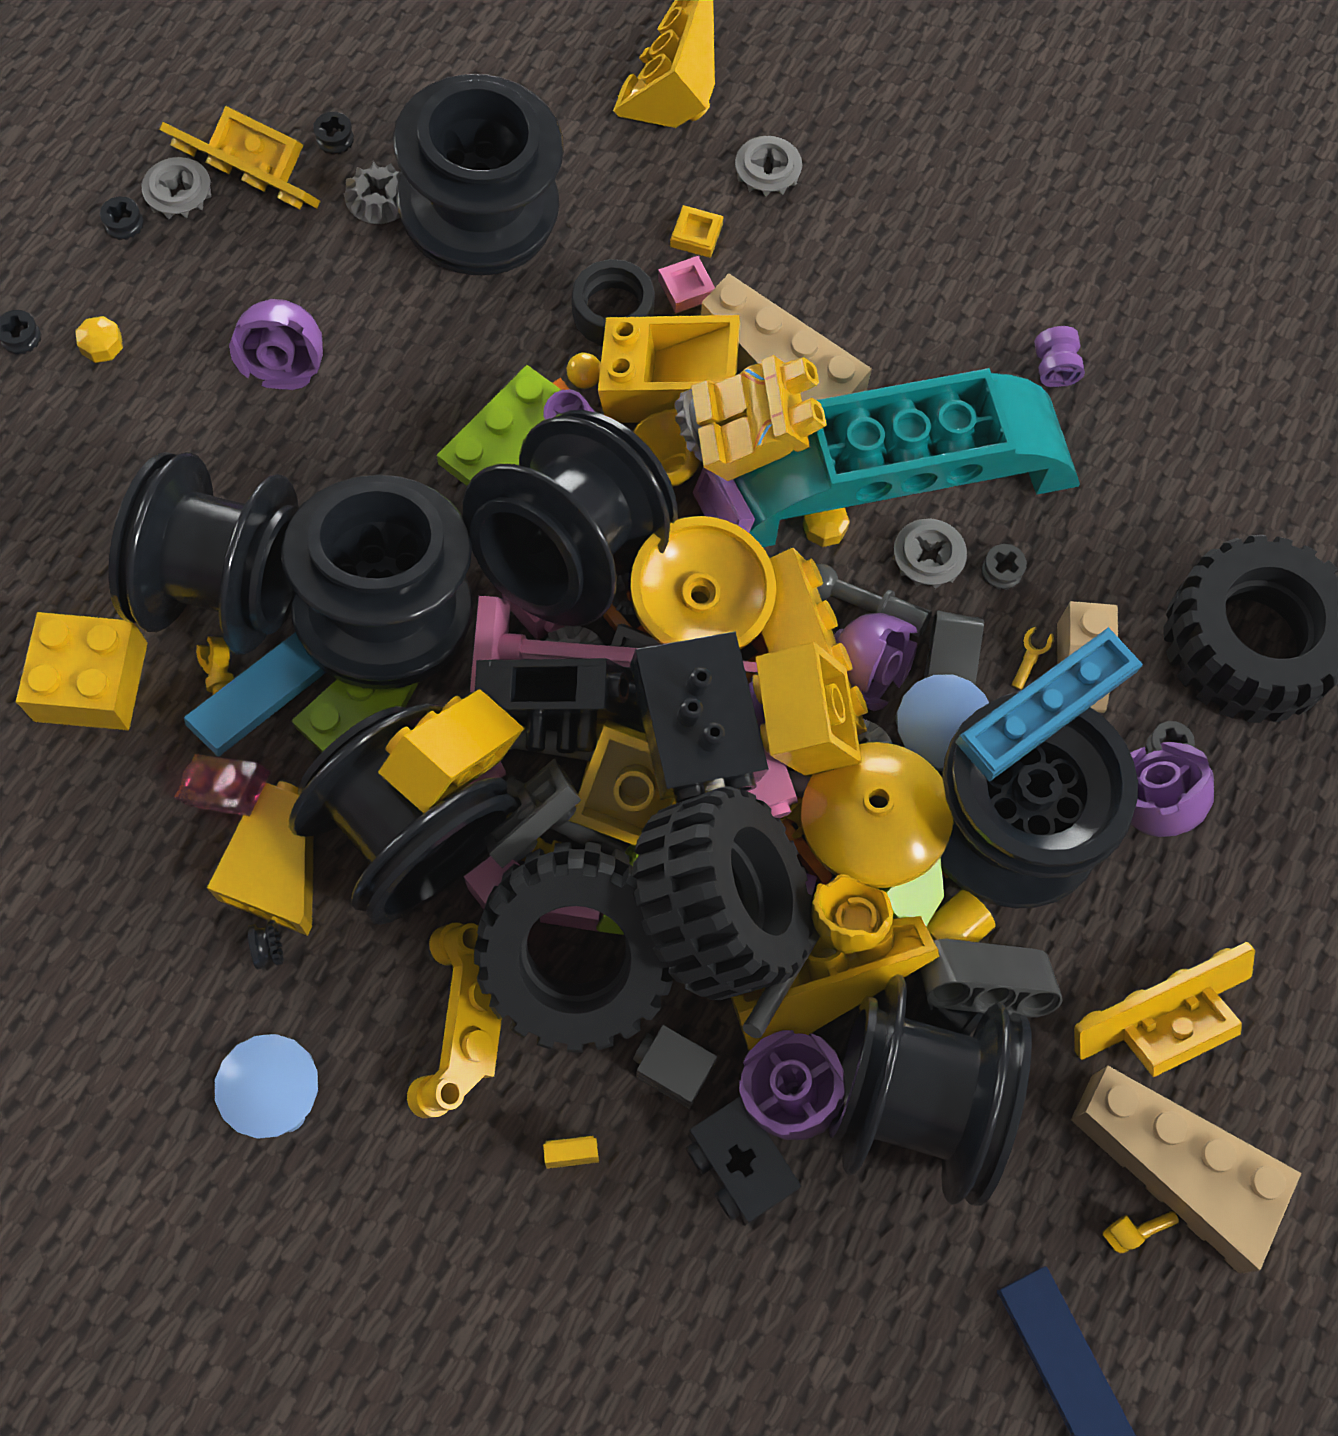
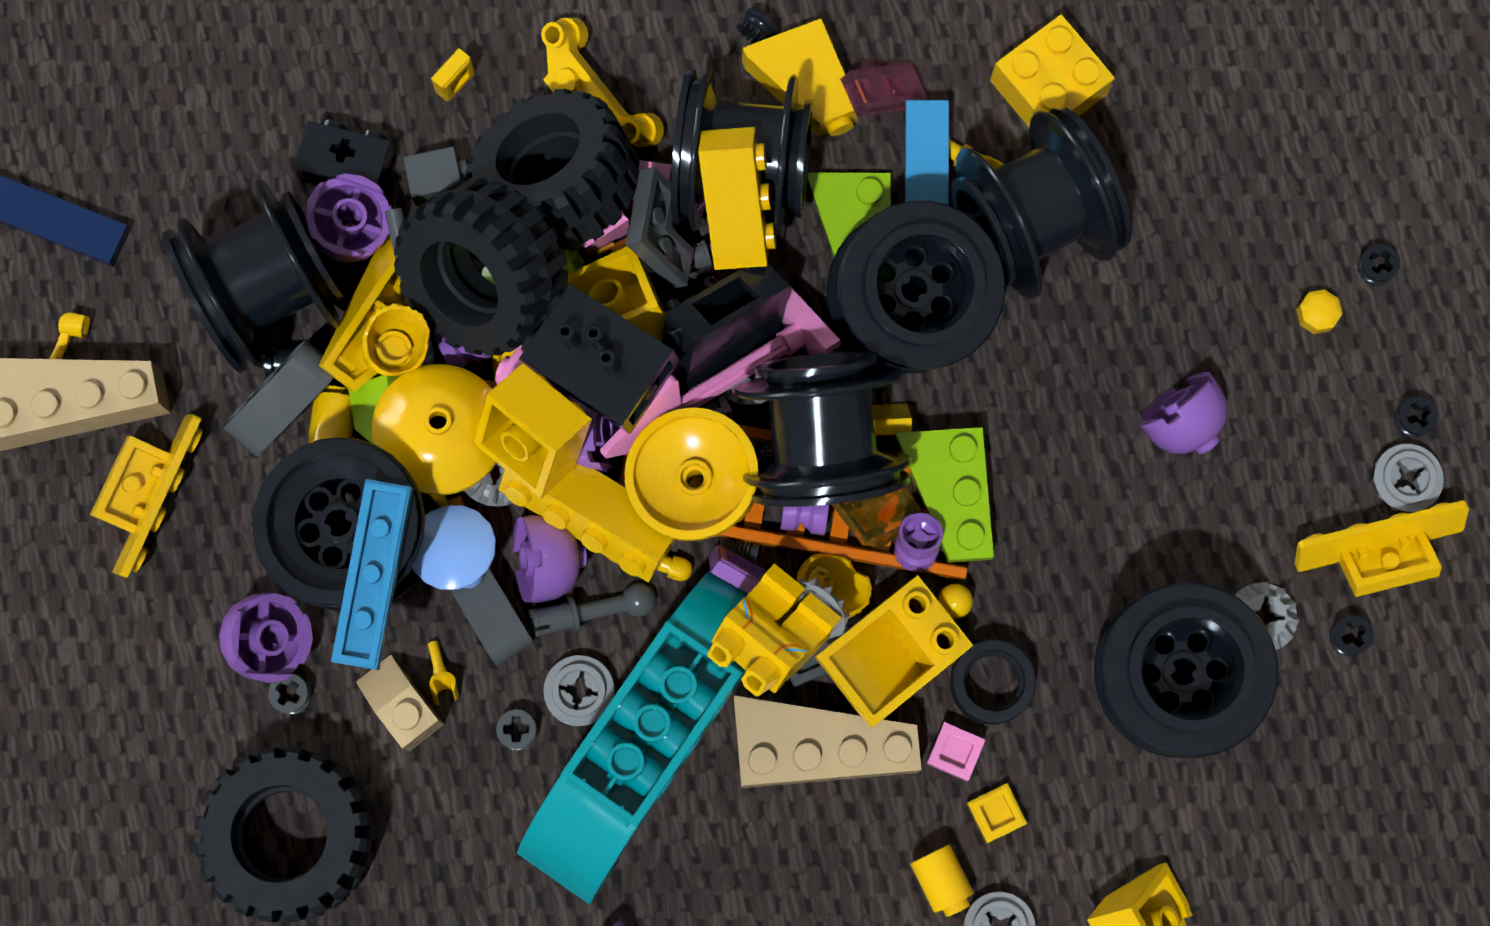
camera: 140 degrees right, 10 degrees up
(779, 218) = (943, 881): none -> yellow brick

